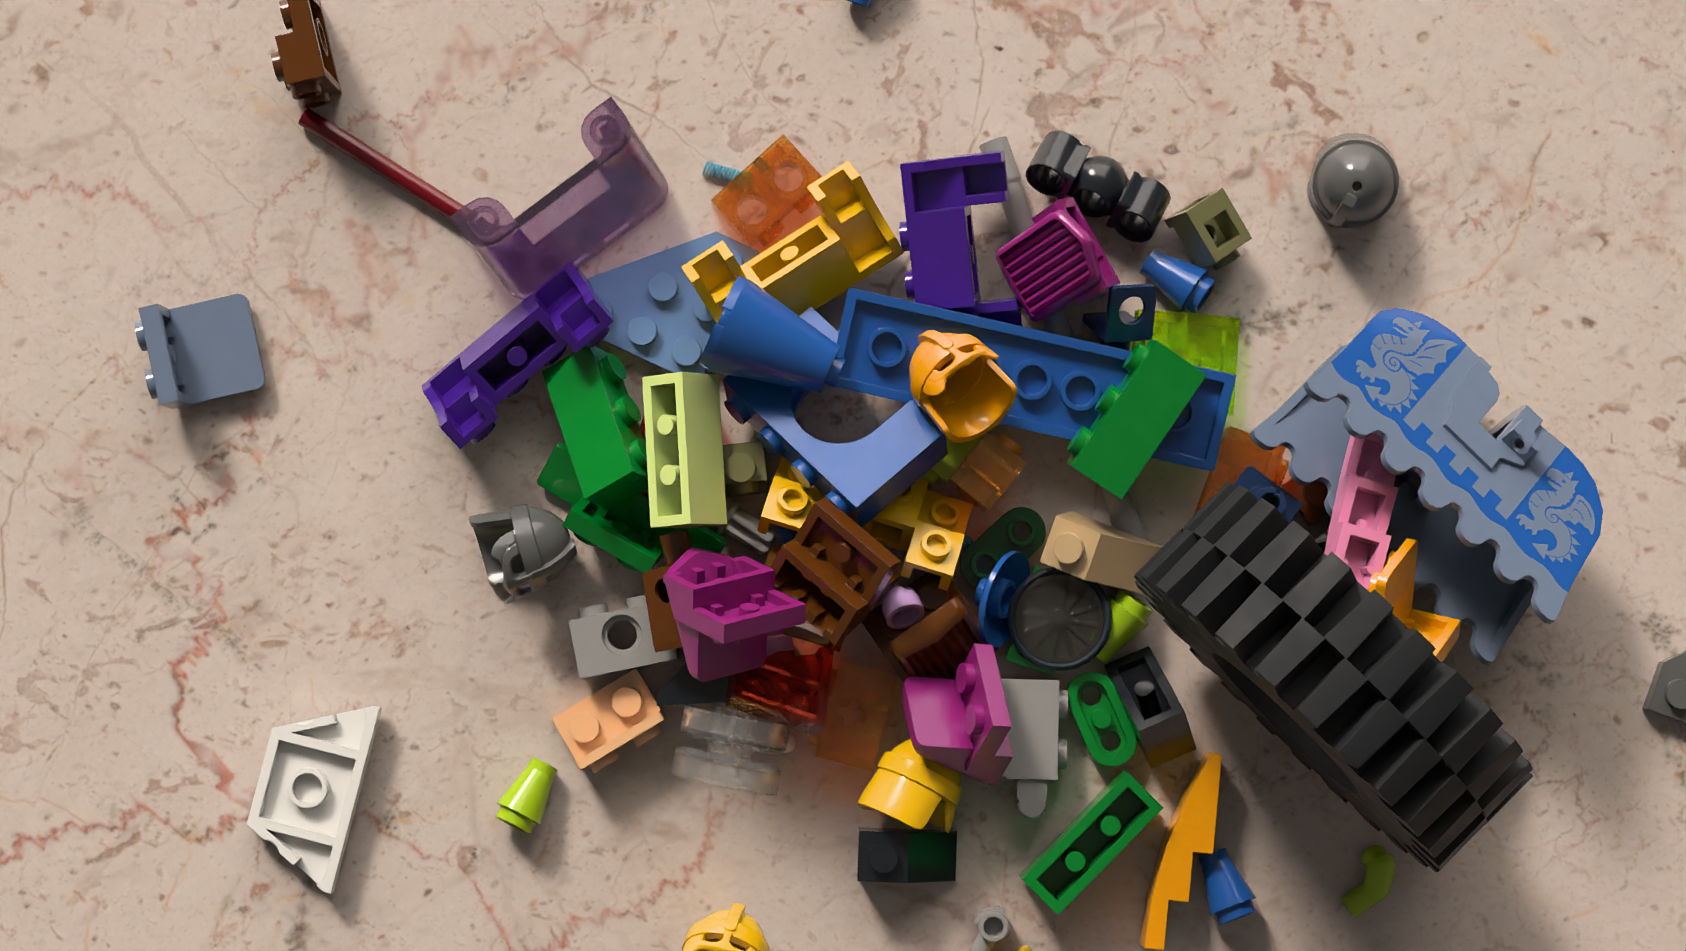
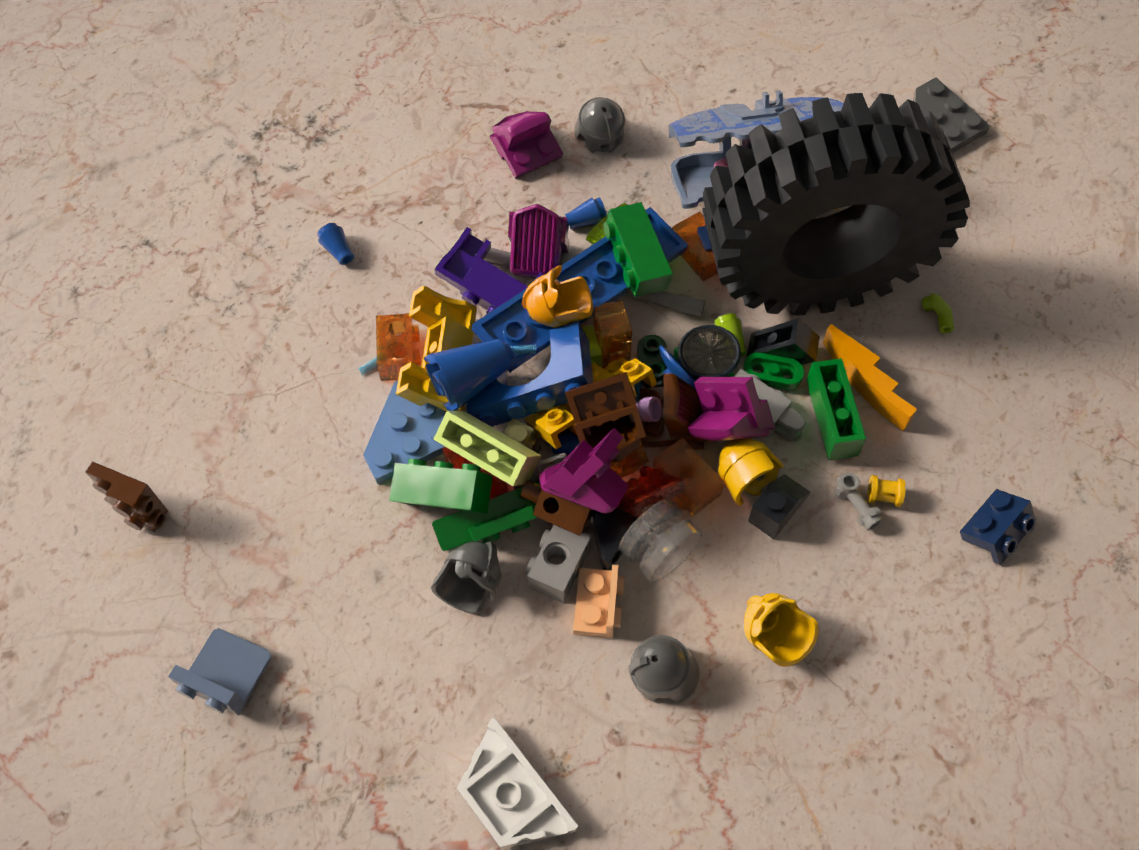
camera: 50 degrees left, 25 degrees down
(379, 163) = (221, 513): dark red bar -> none
(512, 350) = (367, 493): dark purple bracket -> none
(527, 797) = (607, 675): lime cone -> none
(576, 216) = (325, 457): clear purple windscreen -> none
(595, 867) = (673, 674): none -> dark grey helmet
(860, 382) = (526, 349): none -> medium azure leg
(1096, 551) = (689, 313): tan slope -> none
(1098, 186) = (501, 214): black piece -> none
(1120, 327) = (589, 237): dark blue bracket -> none
(1210, 229) = (574, 186): olive brick -> none
(1225, 888) = (904, 371): blue cone -> none
(1244, 89) = (526, 141): none -> magenta piece

